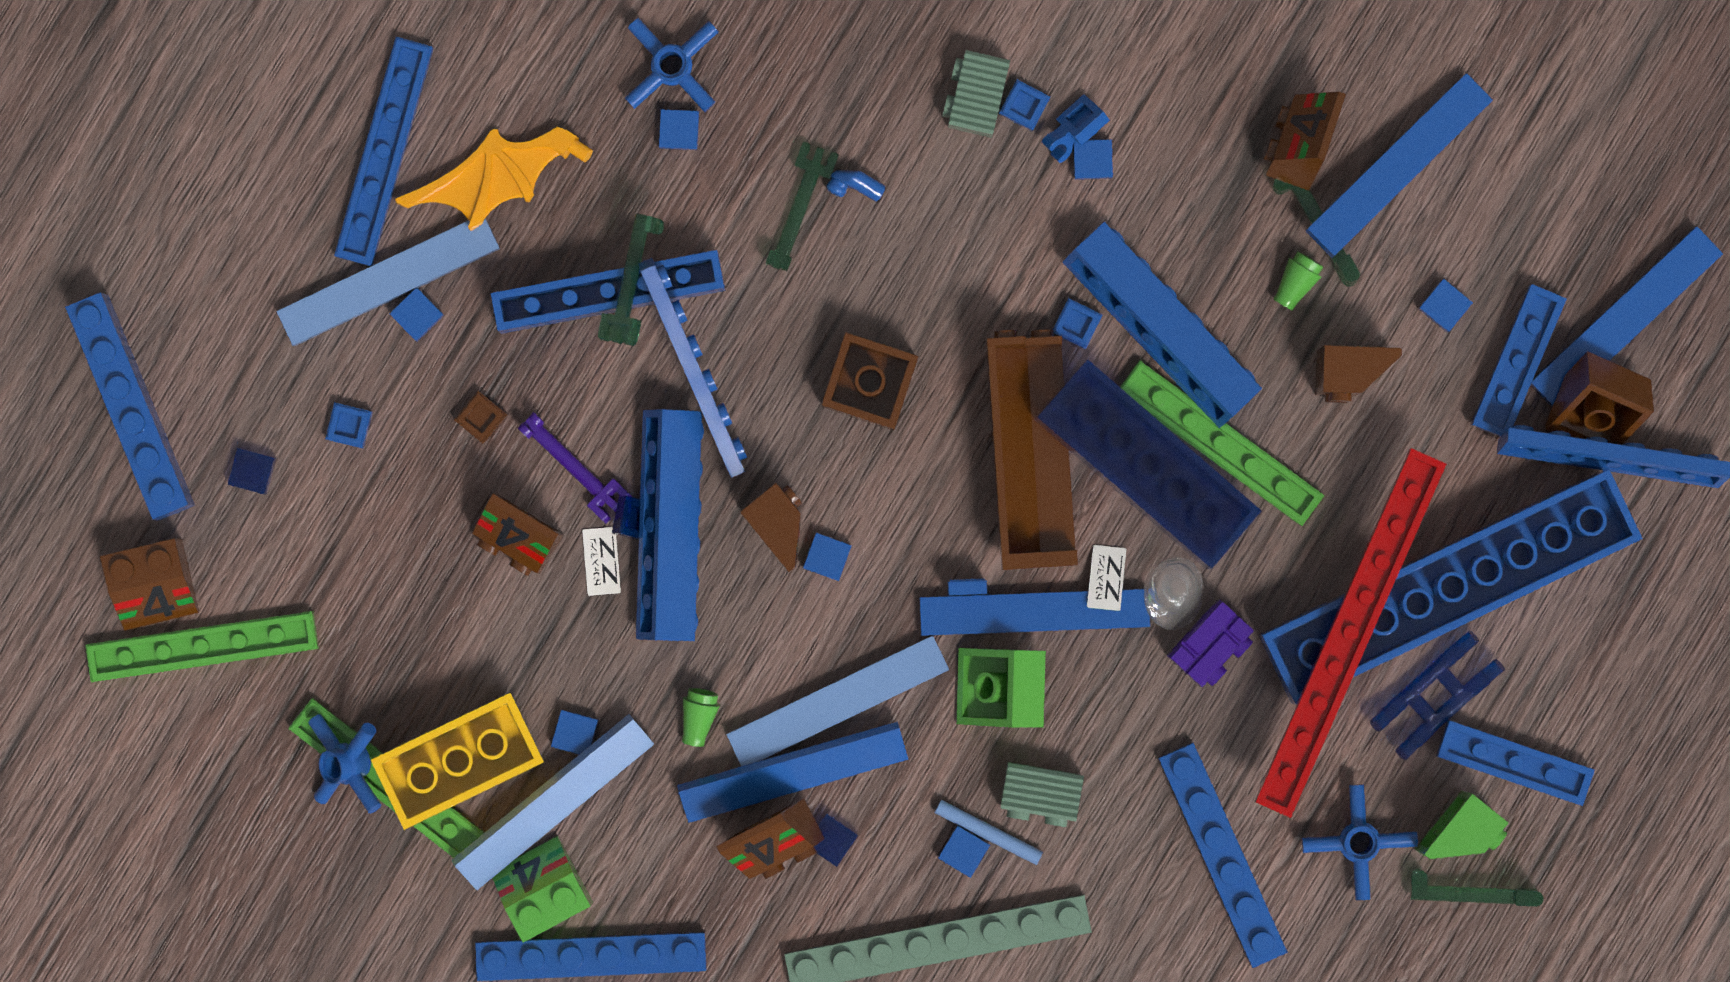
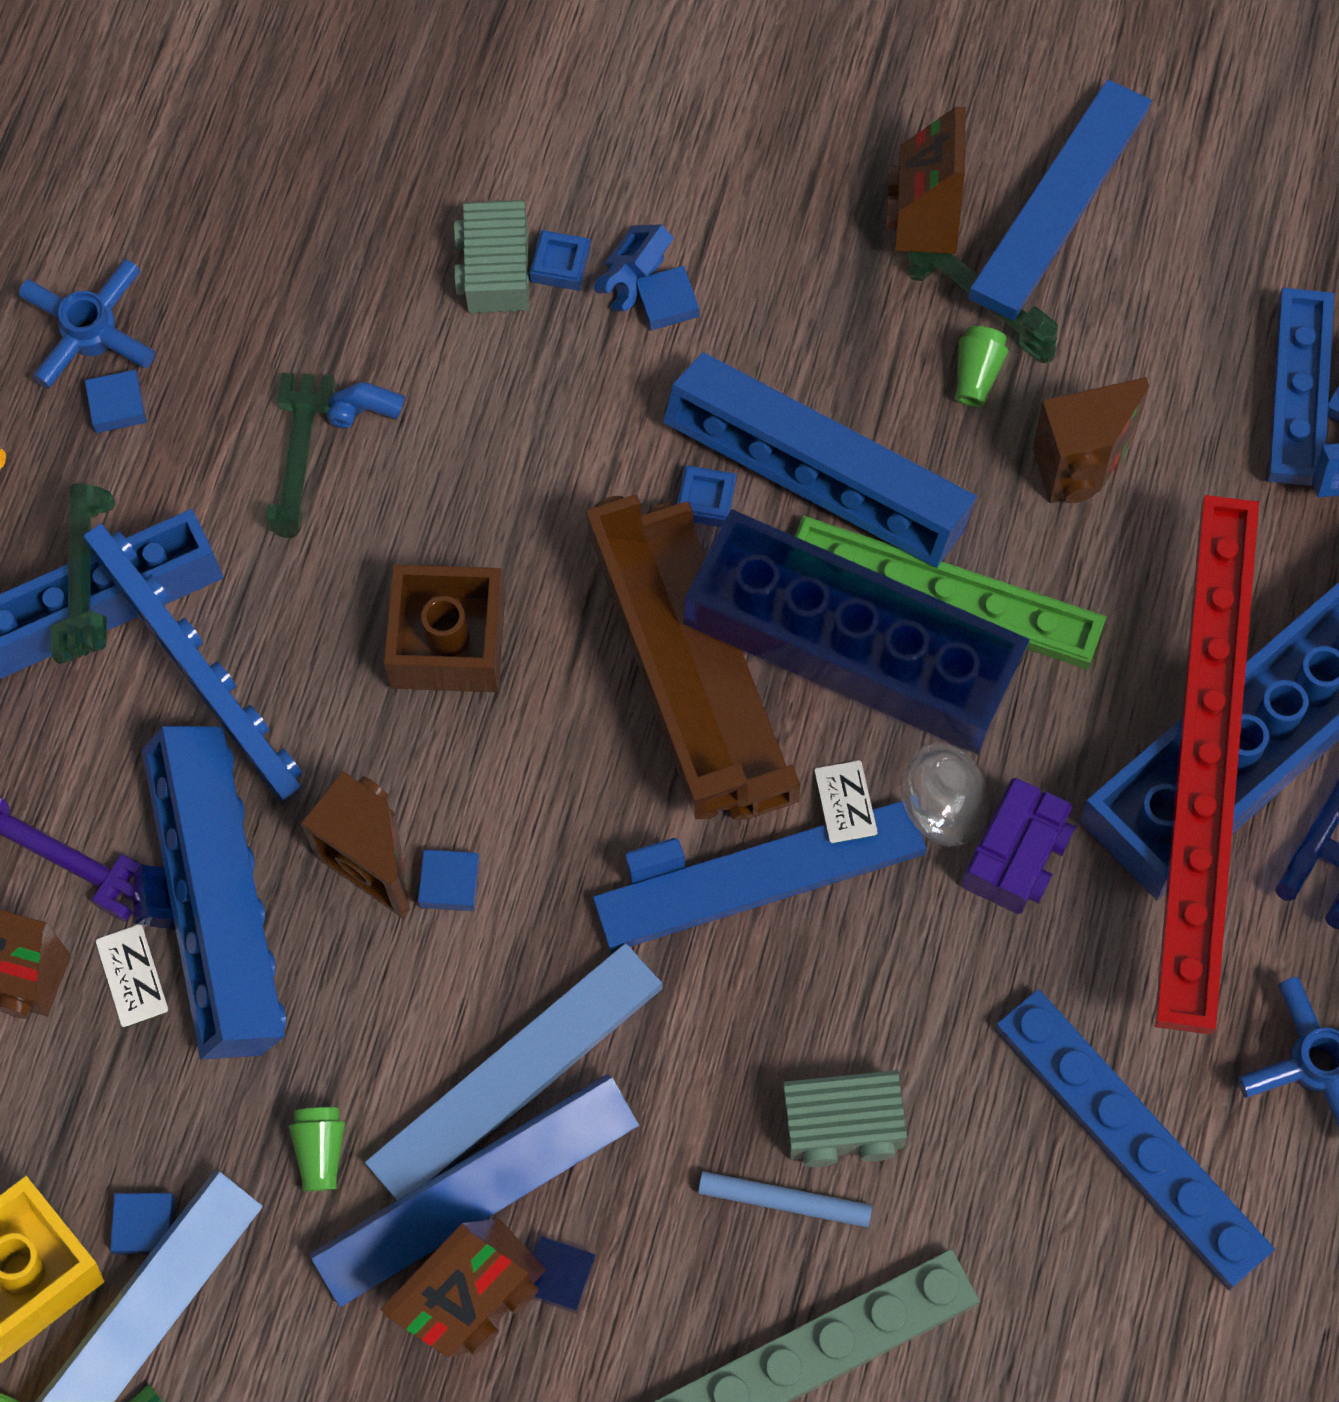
camera: 15 degrees left, 20 degrees down
(963, 851) = (757, 1236): blue tile -> none
(1001, 687) = (742, 985): bright green slope -> none
(1445, 305) = (1180, 348): blue tile -> none

